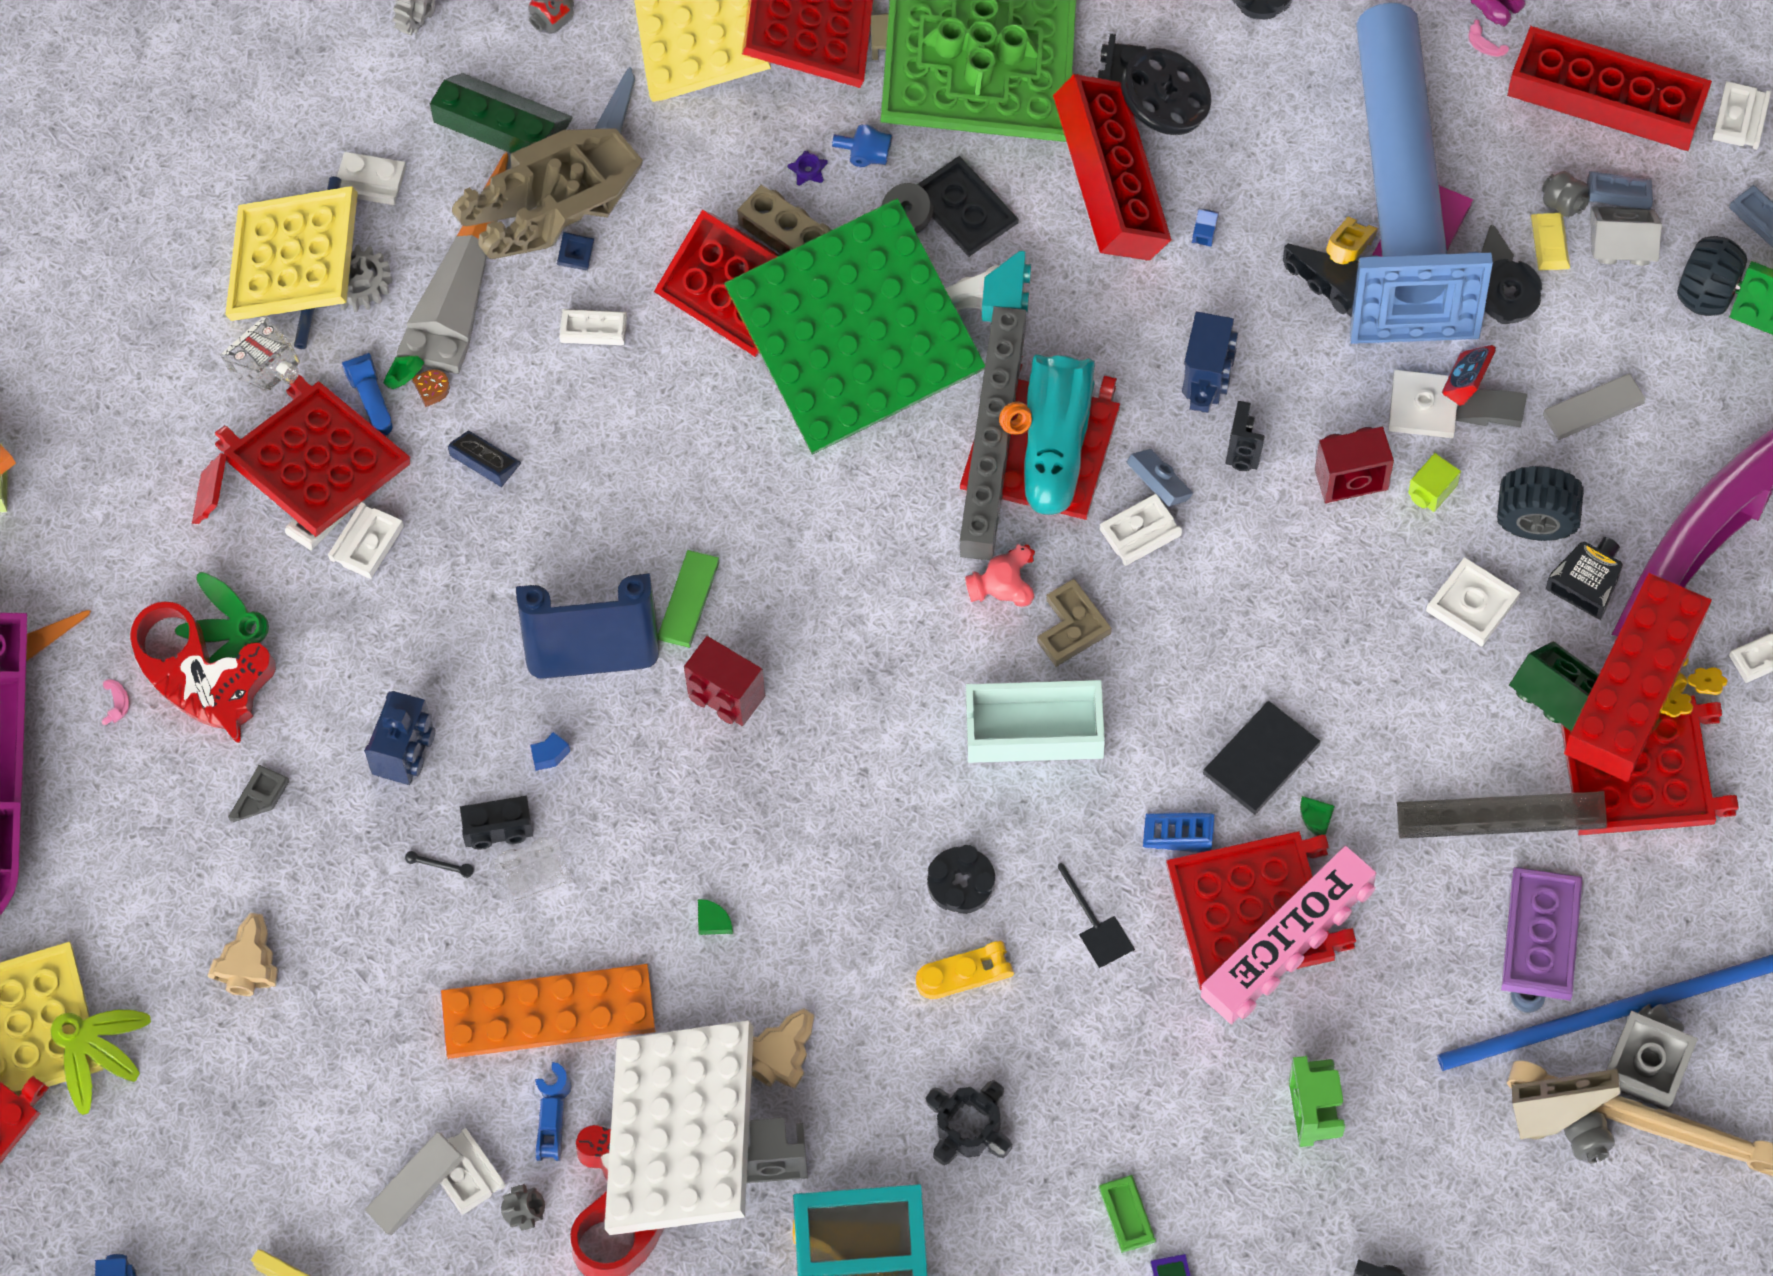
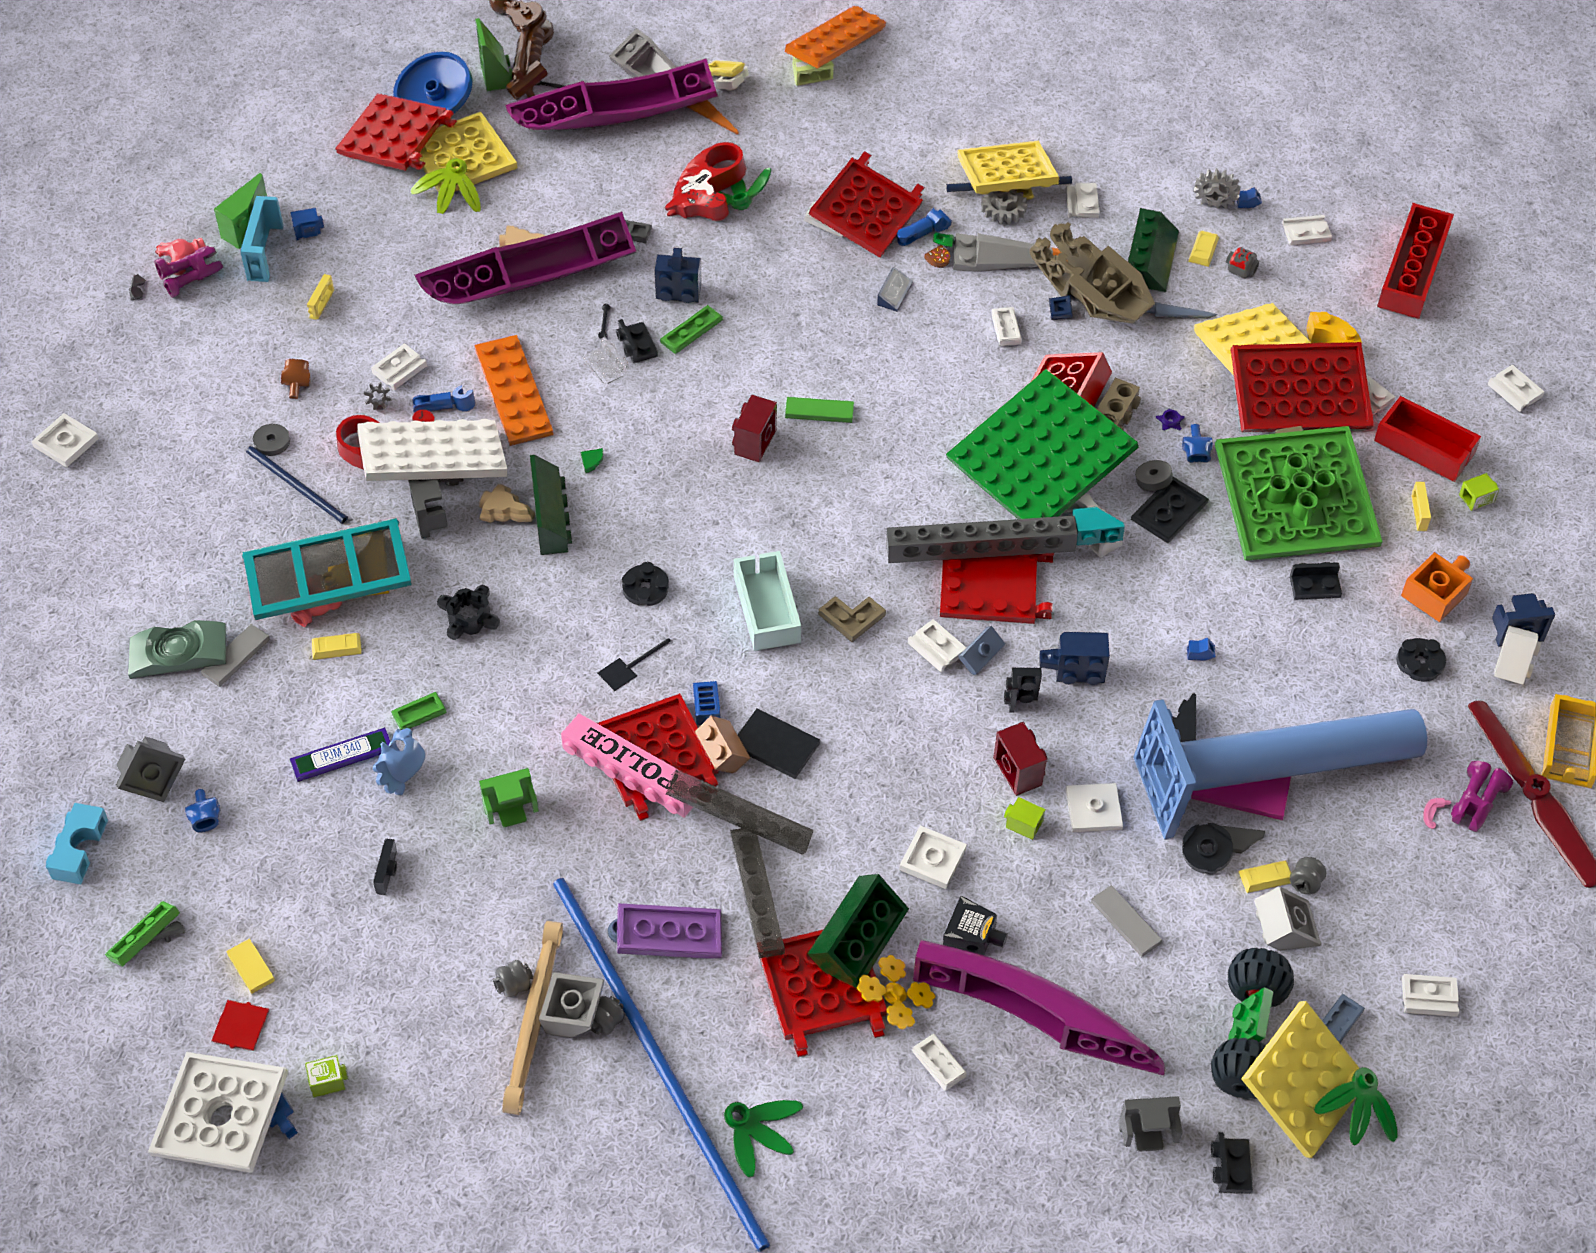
camera: 75 degrees right, 10 degrees down
(120, 700) = (680, 158): bright pink piece -> none
(209, 489) = (829, 162): piece -> none
(262, 357) = (933, 170): clear torso -> none
(310, 945) = (529, 262): none -> magenta slope
(366, 540) = (817, 244): white plate -> none
(414, 1183) = (385, 342): light grey tile -> none
(488, 744) = (691, 329): none -> bright green tile
(504, 52) = (1204, 248): none -> light yellow tile
(550, 752) = (690, 358): blue piece -> none
(590, 635) = (777, 369): dark blue windscreen -> none
(797, 985) = (550, 507): none -> dark green slope
(963, 971) = (578, 596): yellow plate -> none
(1003, 578) = (875, 570): coral animal -> none
(1021, 423) = (979, 537): orange plate -> none
(1060, 412) = (991, 572): teal piece -> none
(1111, 168) = (1222, 578): red brick -> none
(1155, 93) = (1310, 598): black wedge -> none
(1225, 1243) = (398, 766): none -> medium blue piece
(1266, 818) = (722, 744): none -> medium nougat brick
(1316, 815) = (737, 783): green tile -> none
(1350, 241) = (1204, 725): yellow plate -> none
(1391, 810) = (739, 812): none -> clear smoke plate
(1468, 374) = (1123, 827): slope -> none
(1494, 407) = (1102, 851): dark grey slope -> none
(1540, 503) = (1019, 880): black wheel -> none
(1556, 1103) = (528, 945): slope -> none
(1609, 88) = (1415, 893): red brick -> none
(1620, 190) = (1326, 914): sand blue plate -> none
(1637, 677) = (868, 939): red brick -> none

